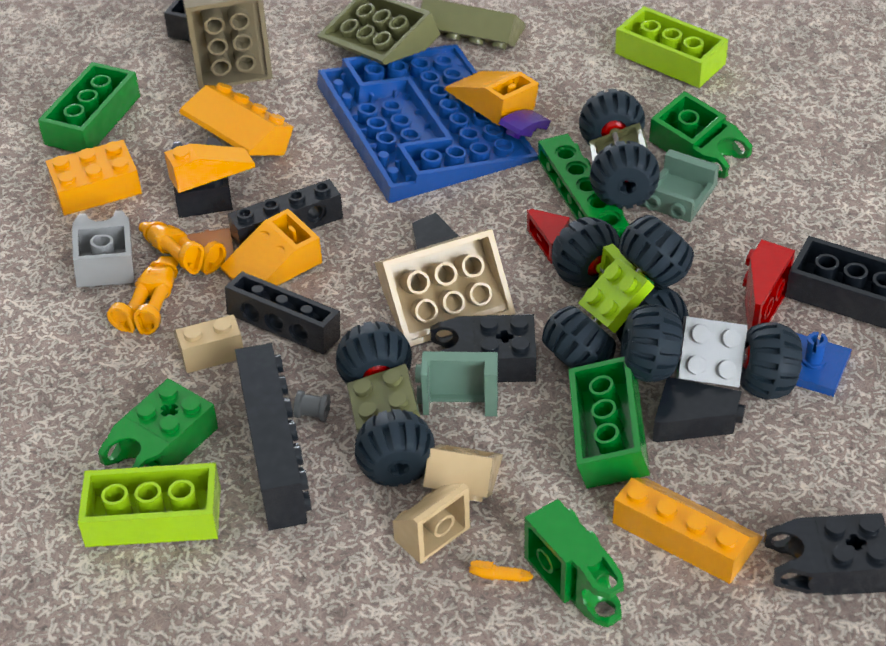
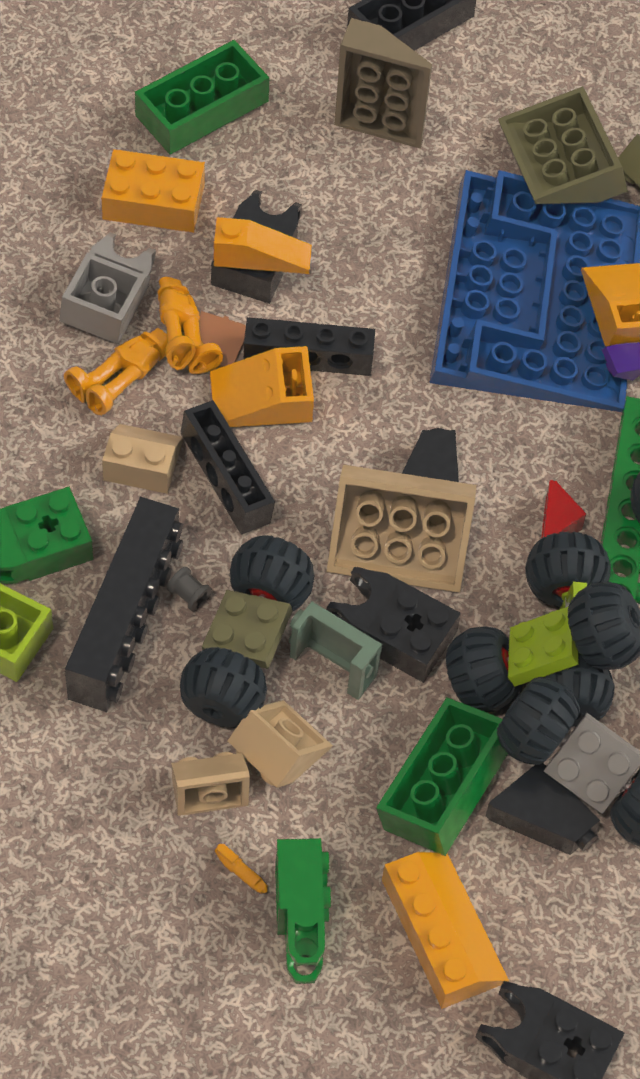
camera: 25 degrees right, 15 degrees up
(238, 120) = (335, 198): light orange slope -> none

